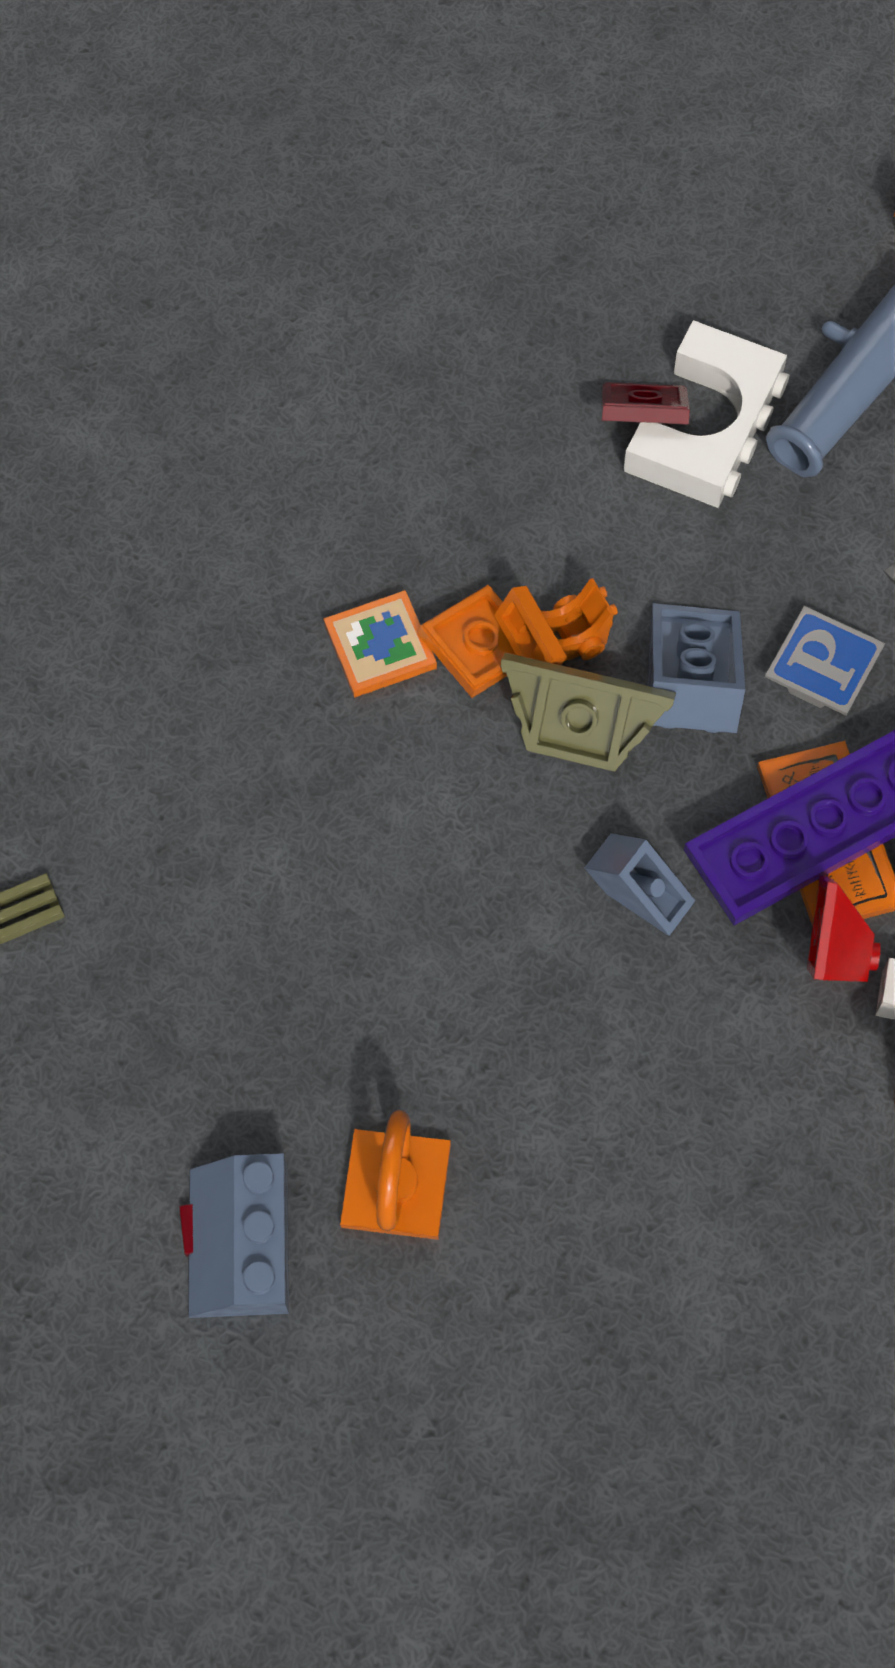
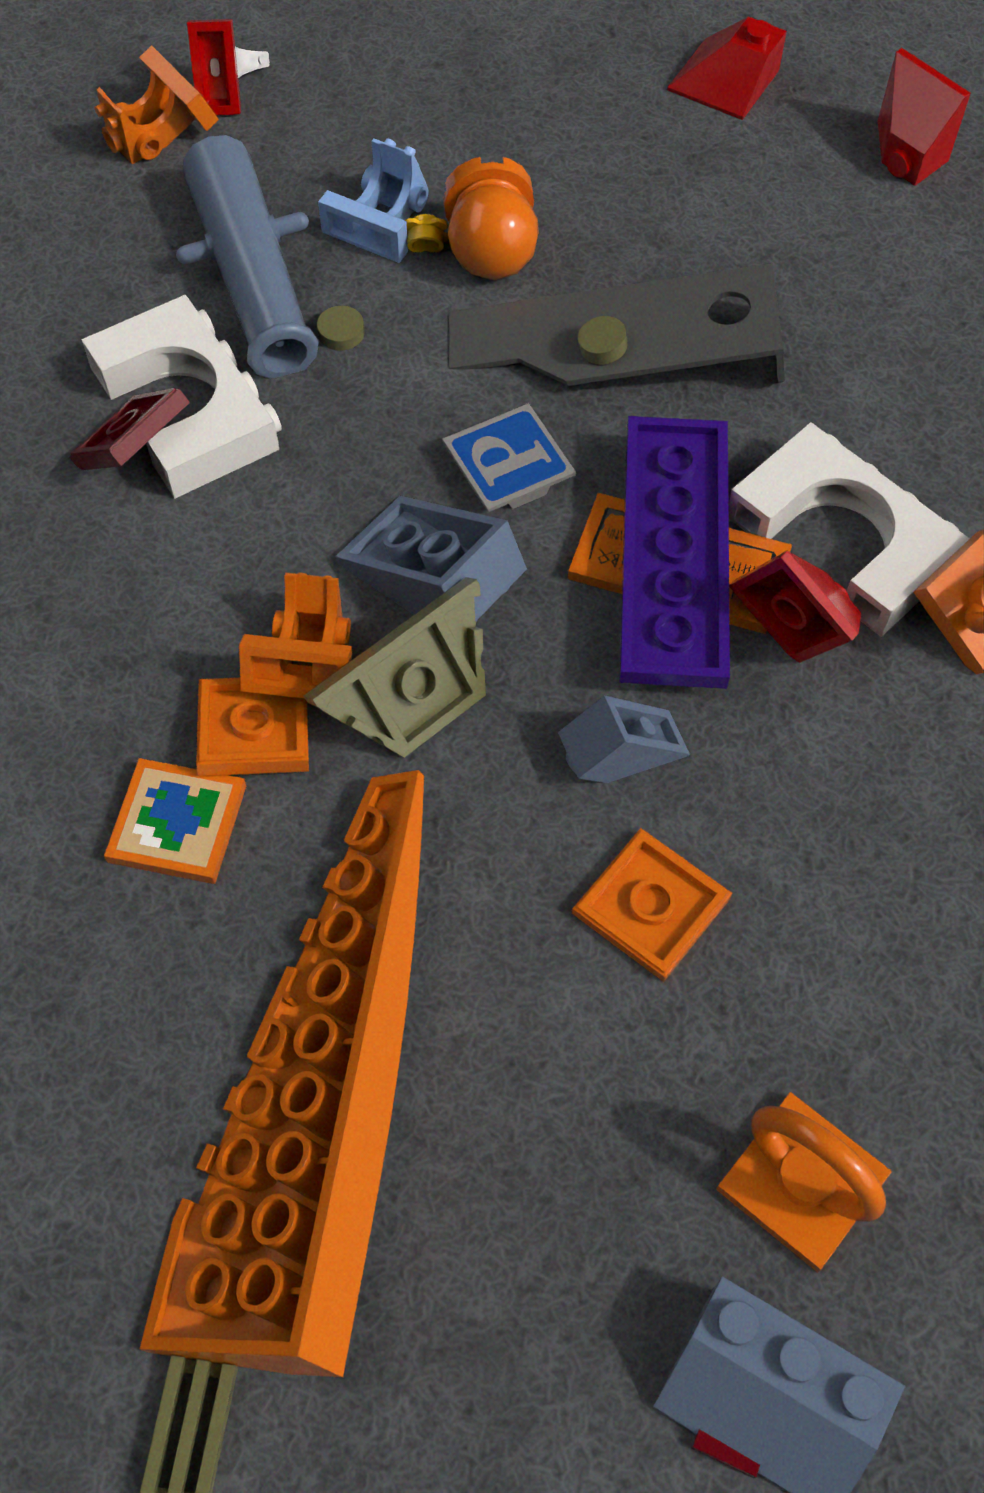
camera: 60 degrees left, 5 degrees down
(150, 886) = (285, 1221): none -> orange wedge
(530, 976) = (651, 904): none -> orange tile
(857, 474) = (340, 328): none -> olive tile

